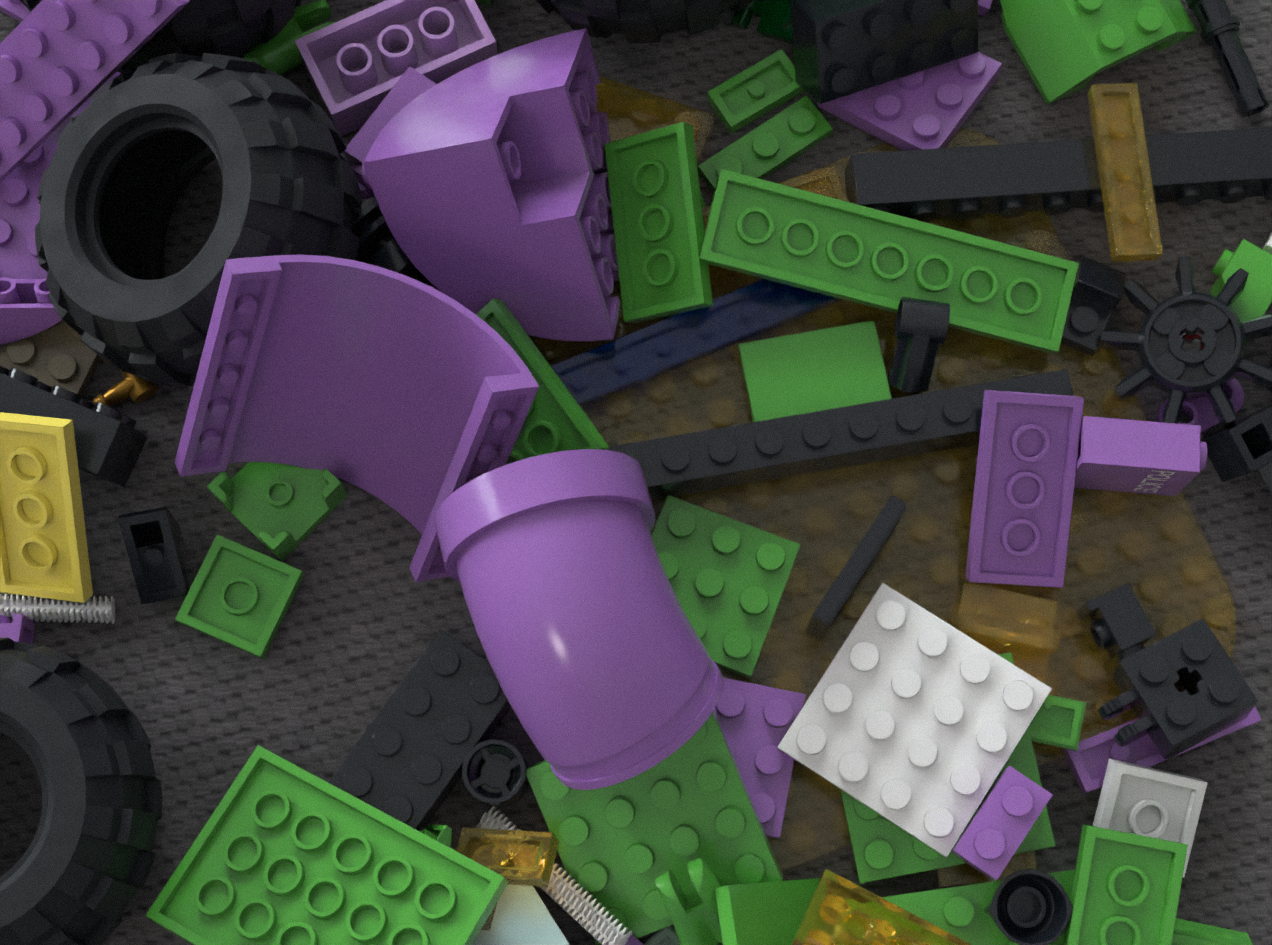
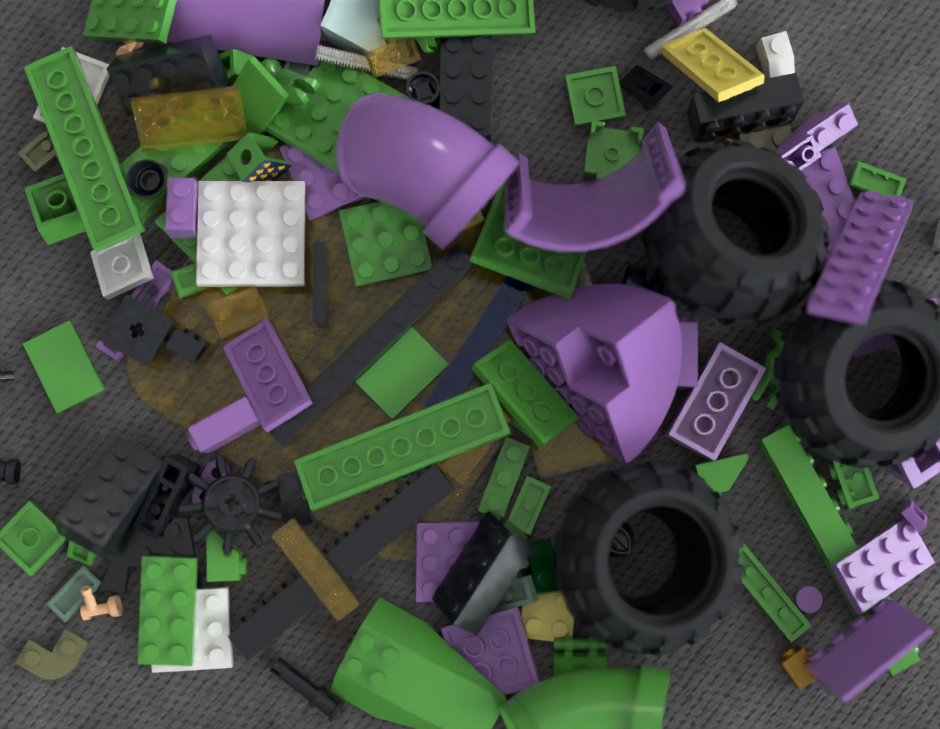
camera: 140 degrees right, 10 degrees up
(833, 813) = (260, 168): none -> bright green piece
(918, 332) = (363, 417): black piece -> none

